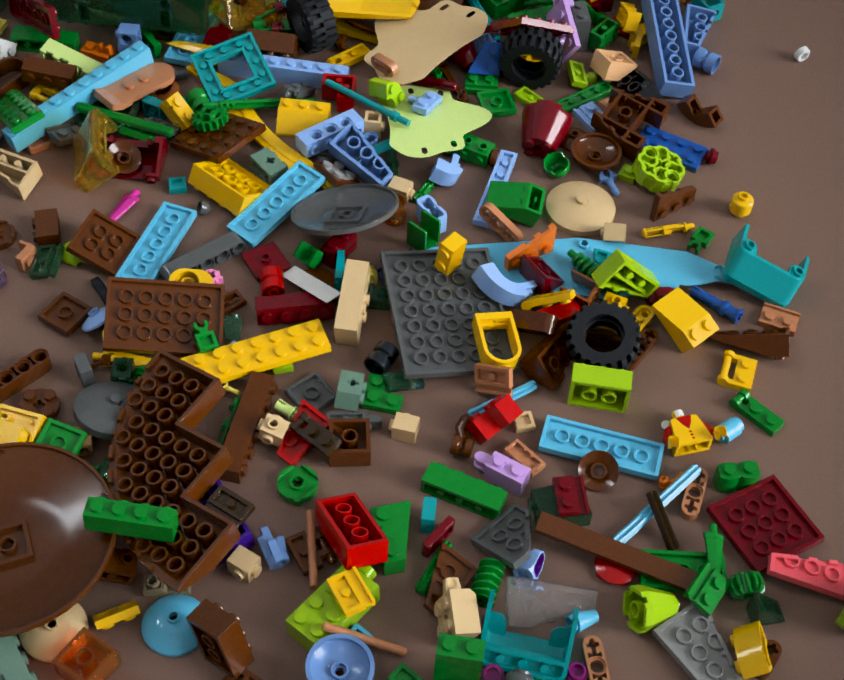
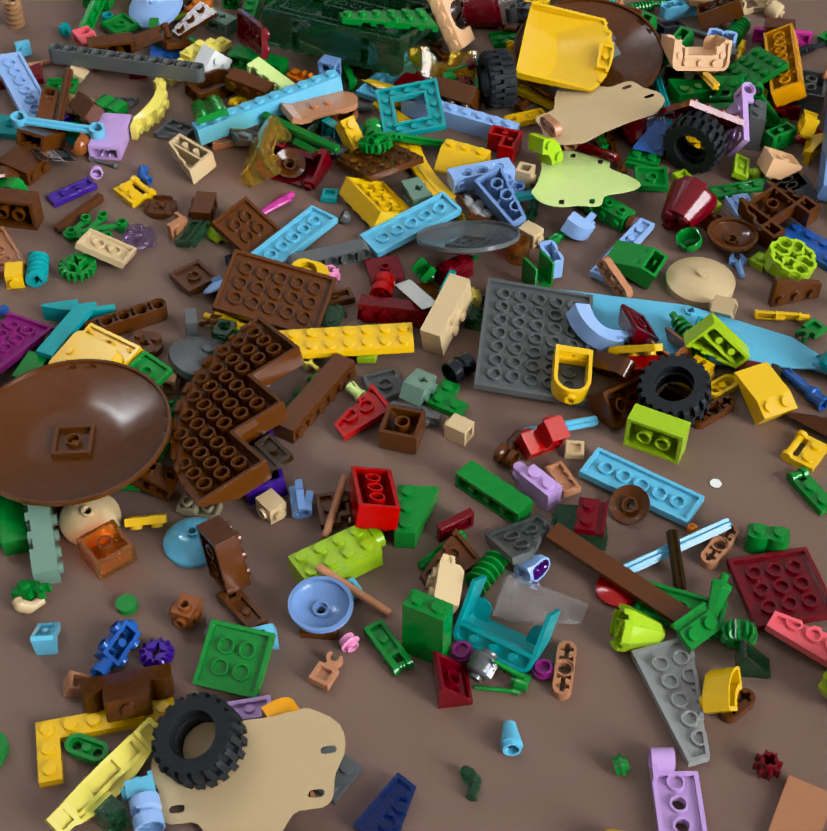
camera: 20 degrees right, 5 degrees down
(130, 519) = (178, 437): green brick -> none
(204, 339) = (303, 318): green plate -> none
(272, 429) = (336, 402): tan brick -> none
(297, 90) = (465, 136): dark grey hinge -> none
(301, 494) = (343, 463): green plate -> none
(315, 434) = (371, 413): dark brown plate -> none
(350, 592) = (351, 544): yellow plate -> none
(393, 115) = (543, 168): teal bar -> none
(395, 382) = (465, 390): clear green tile -> none
(426, 103) = (580, 166): light blue plate -> none
(428, 515) = (452, 503): teal piece -> none
(450, 253) = (551, 289): yellow brick -> none
(493, 379) = (556, 403): nougat plate -> none
(539, 245) = (643, 302): orange wing -> none
(585, 619) = (567, 626): medium azure cone -> none
(690, 434) = (733, 493): yellow torso -> none
(733, 427) = (775, 498): medium azure brick -> none

